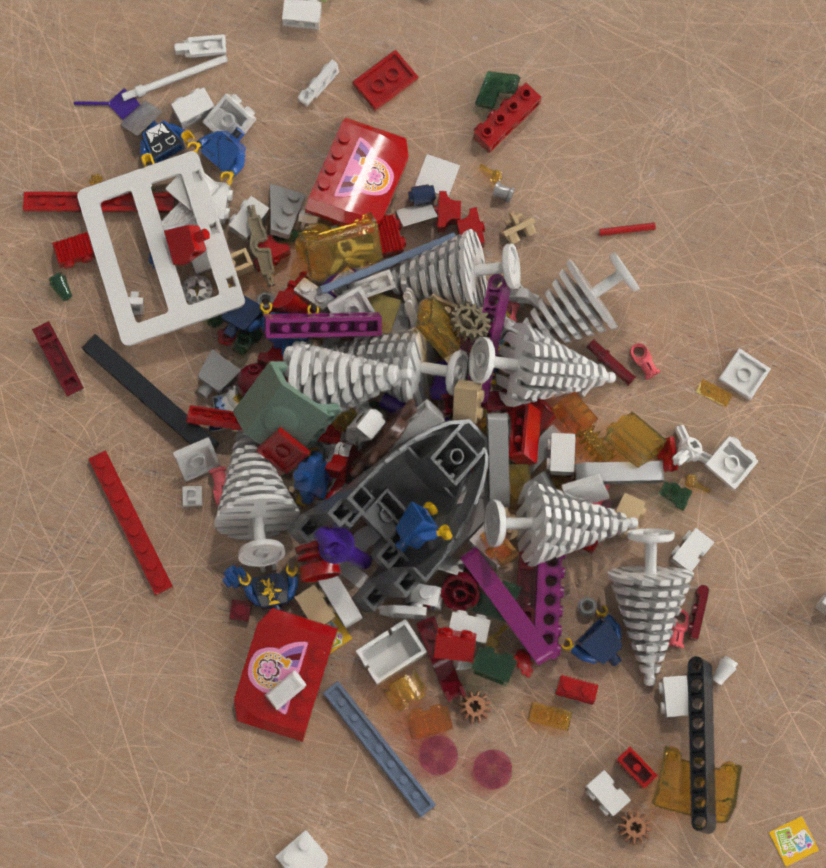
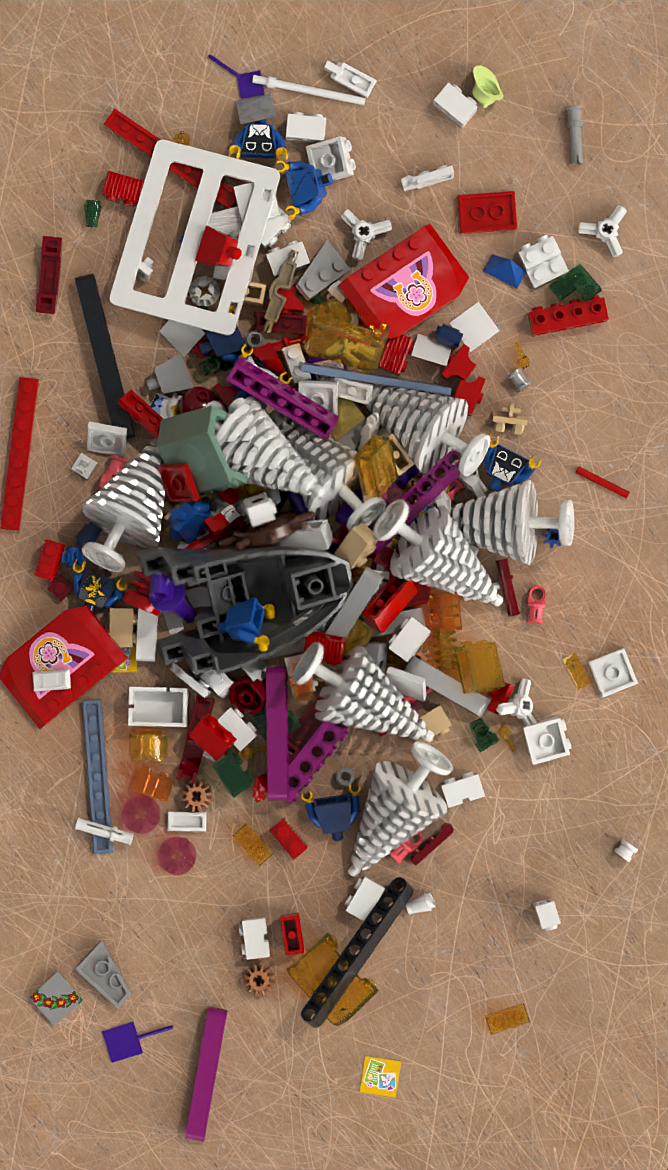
camera: 40 degrees right, 10 degrees up
(202, 335) = (181, 336): none -> white sticker
(215, 592) = (49, 560): none -> red brick
(232, 548) = (89, 533): none -> dark blue brick
(283, 269) = (286, 323): none -> dark red plate
(300, 164) = (362, 241): none -> white bush
(410, 792) = (104, 831): none -> white pin
(431, 115) = (505, 270): none -> blue slope
(456, 88) = (542, 261): none -> white plate
(469, 322) = (405, 479): dark tan gear -> none
(480, 734) = (187, 821): none -> white tile
(490, 24) = (612, 223): none -> white bush
(505, 496) = (333, 646): none -> red brick
(542, 265) = (507, 466): none -> torso
(624, 298) = (552, 542): none -> blue gear

